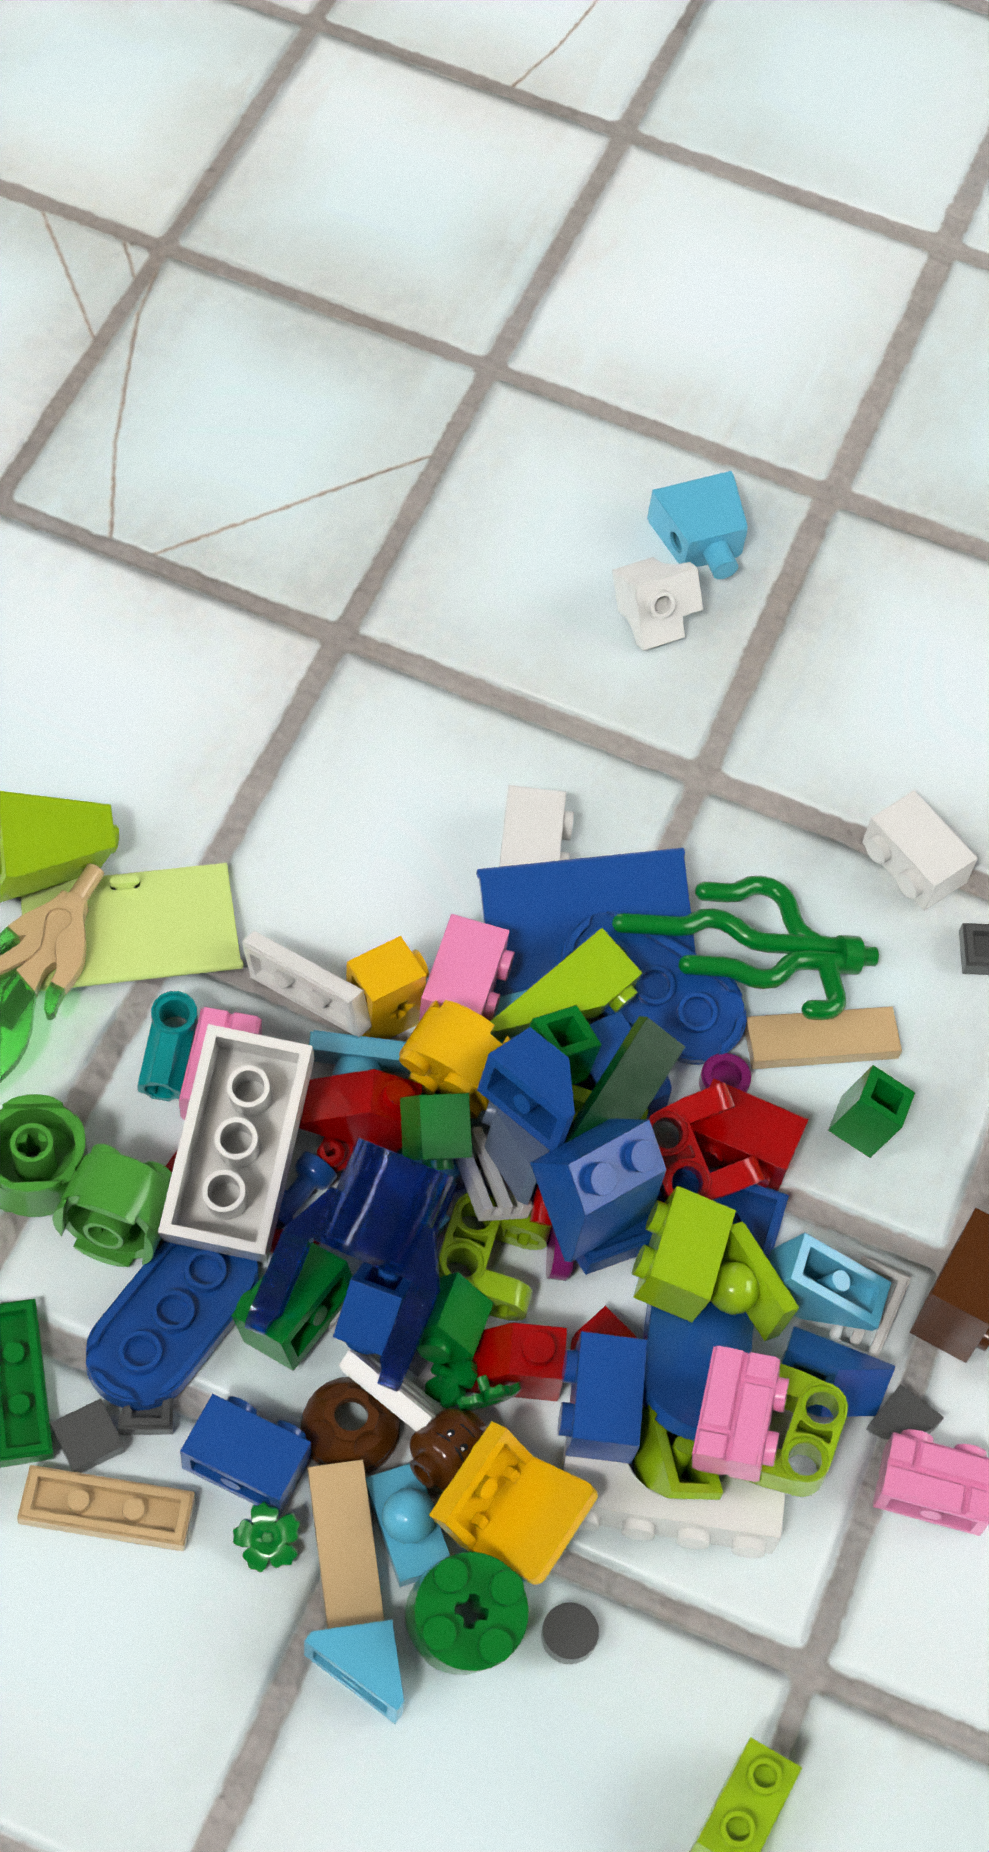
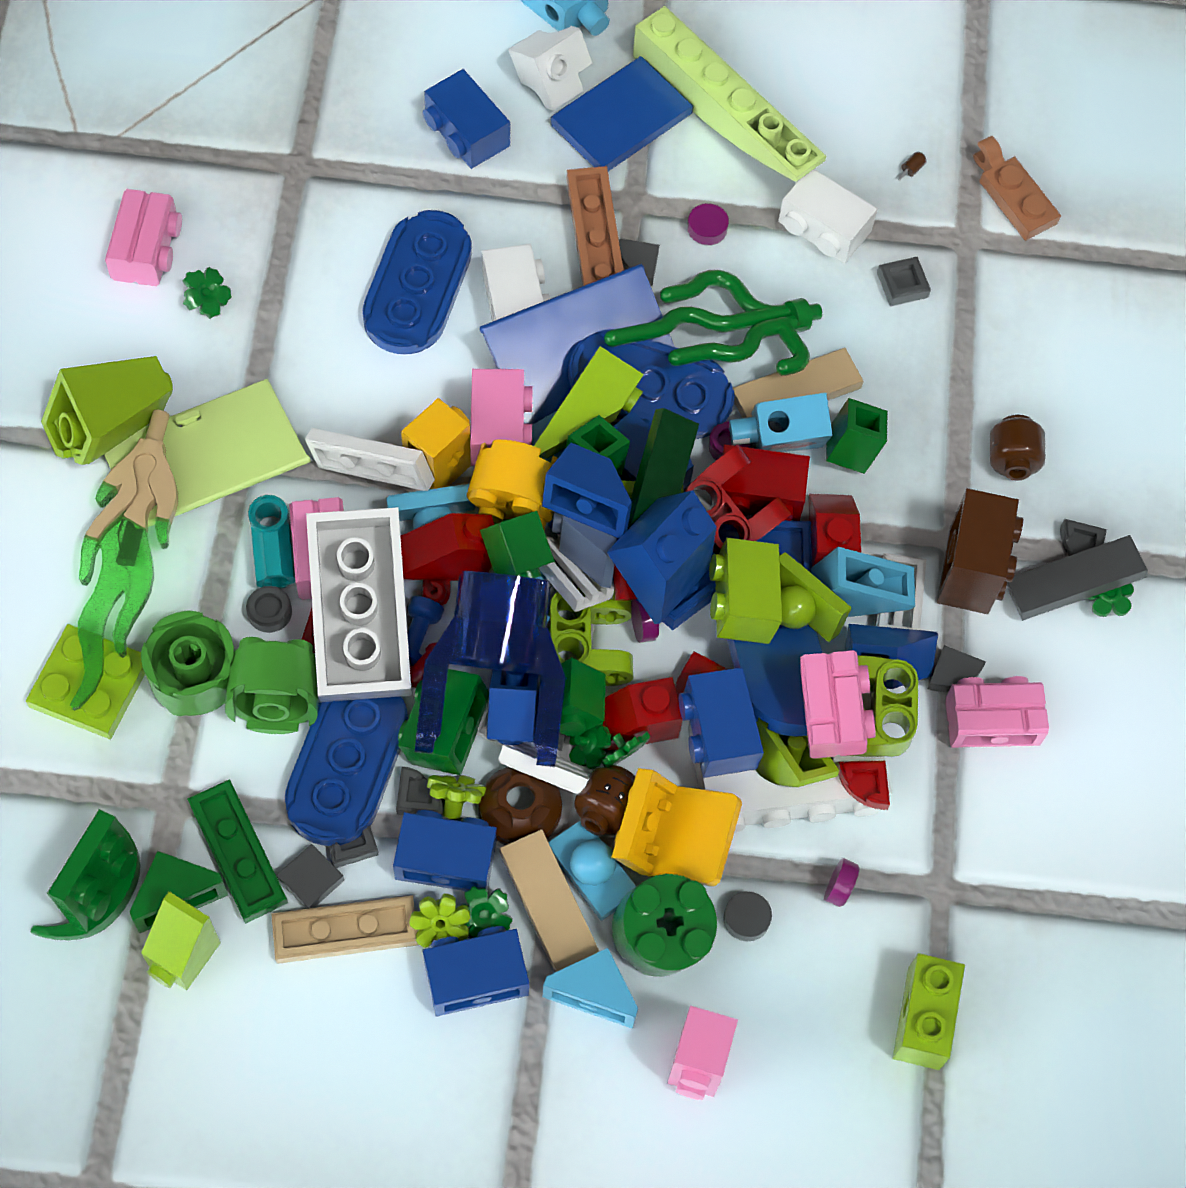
camera: 15 degrees left, 5 degrees up
(141, 671) = (143, 237): none -> bright pink brick
(143, 1120) = (269, 609): none -> dark grey tile
(190, 749) = (206, 292): none -> green plant
(214, 1532) = (440, 920): none -> lime plant
(235, 1600) = (475, 970): none -> blue brick
(238, 1377) = (414, 794): none -> dark grey tile
(280, 1388) = (455, 793): none -> lime plant
(428, 801) = (417, 282): none -> blue tile
(459, 1776) = (702, 1053): none -> bright pink brick
(541, 634) = (466, 119): none -> blue brick
(648, 788) = (594, 223): none -> nougat plate
(691, 837) = (638, 253): none -> dark grey tile
(691, 1627) = (842, 882): none -> magenta tile
(719, 676) = (621, 115): none -> blue tile
(753, 1517) = (866, 782): none -> red tile
(778, 823) = (708, 224): none -> magenta tile
(812, 1072) = (802, 419): none -> medium azure torso
(813, 1205) = (833, 524): none -> red slope
(839, 684) = (723, 96): none -> yellowish green slope

